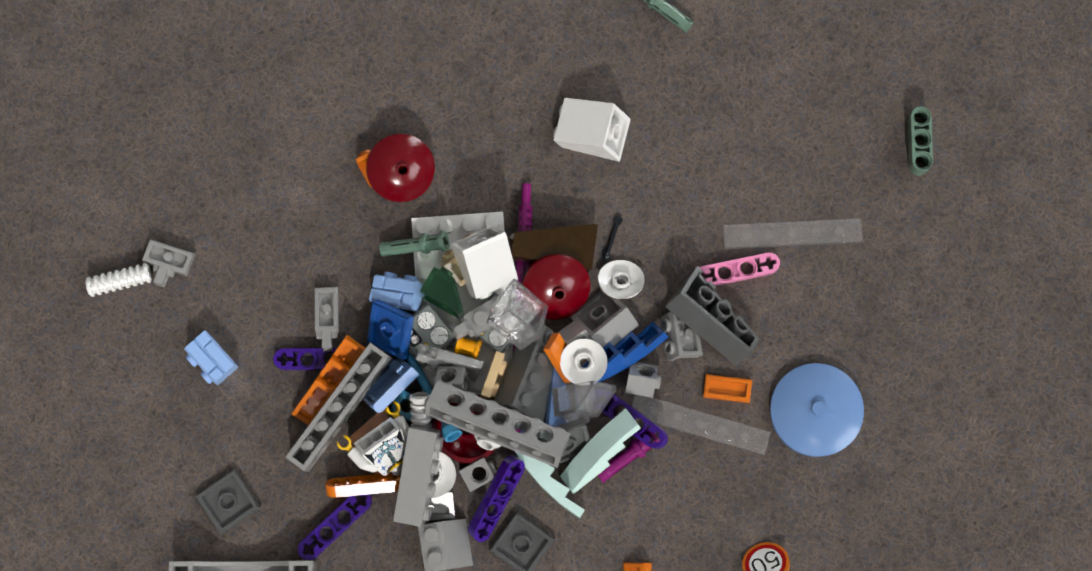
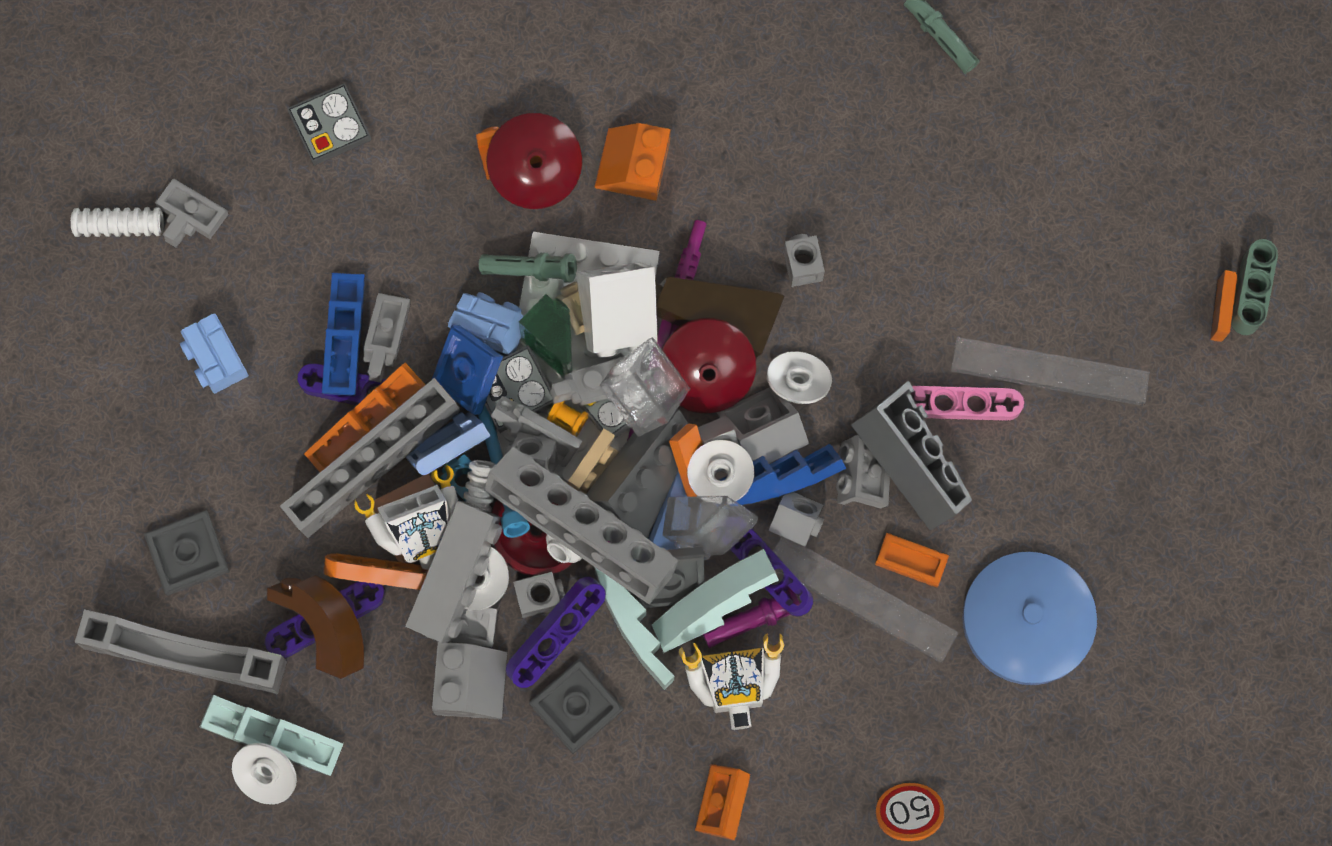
camera: 10 degrees right, 5 degrees down
(252, 181) = (320, 126): none -> tile
(298, 323) = (343, 334): none -> blue slope
(339, 526) = (330, 619): none -> reddish brown arch
(469, 150) = (634, 160): none -> orange slope
(592, 128) = (808, 168): white slope -> none
(604, 204) = (803, 273): none -> light grey brick
(617, 221) = (813, 300): black hinge -> none
(626, 501) = (734, 679): none -> torso
(901, 159) = (1223, 306): none -> orange tile

